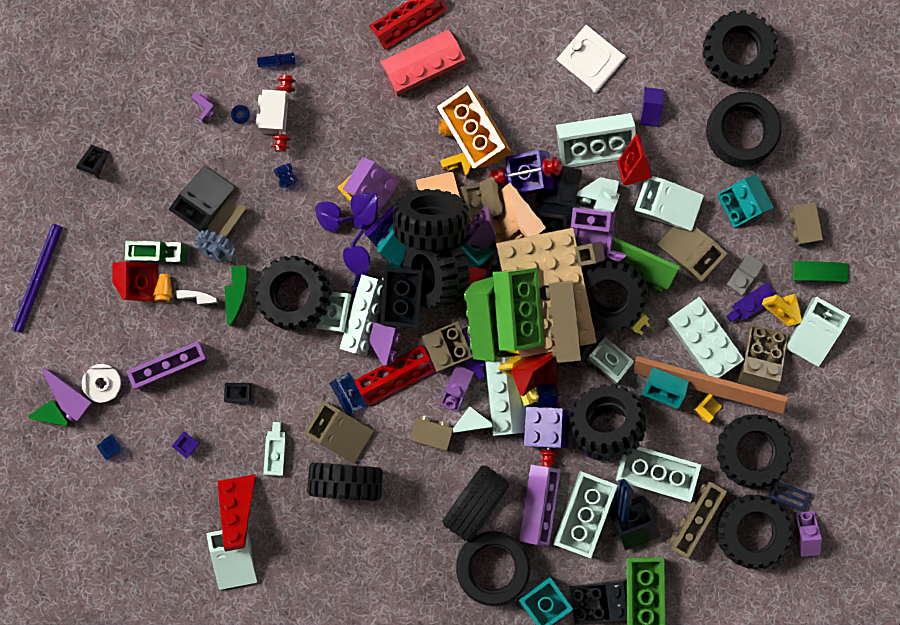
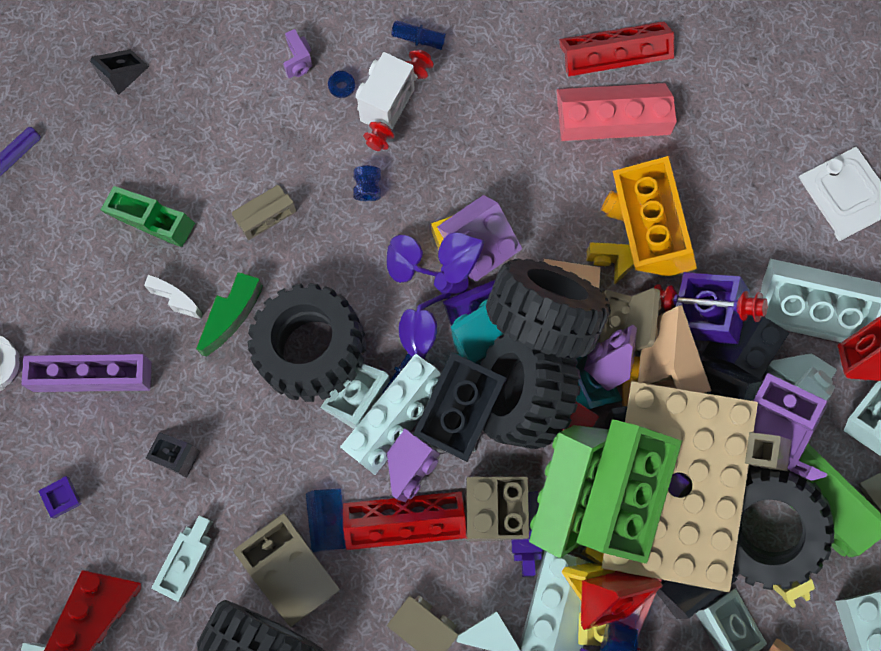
camera: 25 degrees right, 10 degrees down
(135, 280) = (101, 242): red slope -> none
(163, 289) = (133, 269): light orange cone -> none
(201, 199) = (239, 170): black slope -> none
(214, 246) = (228, 235): sand blue gear -> none
(456, 388) = (487, 576): medium lavender slope -> none
(564, 321) = (696, 539): dark tan brick -> none

